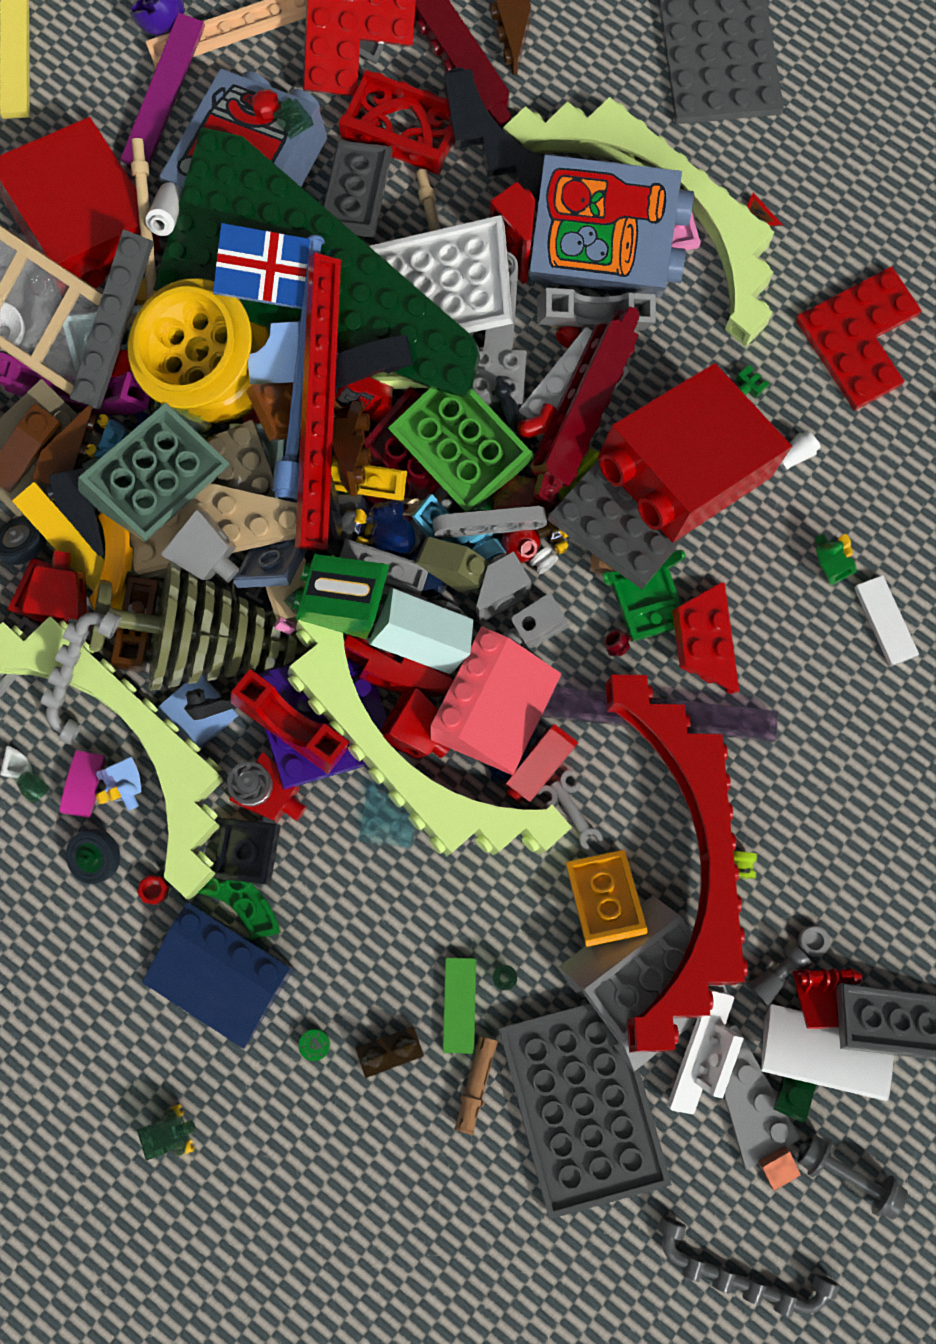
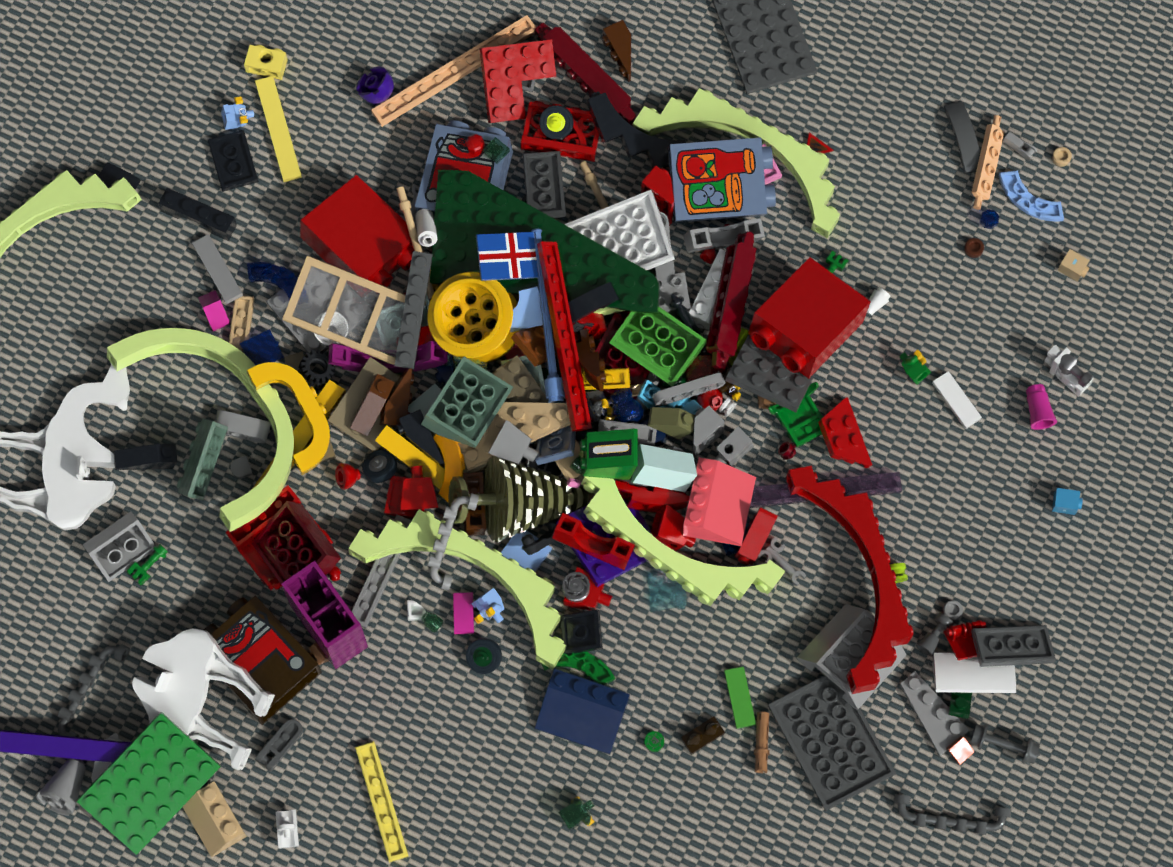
camera: 15 degrees left, 5 degrees down
(112, 435) = (429, 388): dark azure piece -> none
(153, 890) = (527, 669): red tile -> none
(165, 86) = (393, 143): magenta tile -> none
(394, 103) = (556, 122): none -> black wheel
(512, 977) = (764, 668): clear green hose -> none
(537, 425) = (704, 320): red arm -> none
(606, 898) = (816, 609): light orange plate -> none
(707, 1057) = (901, 692): white bracket -> none
(847, 332) = (891, 215): red plate -> none

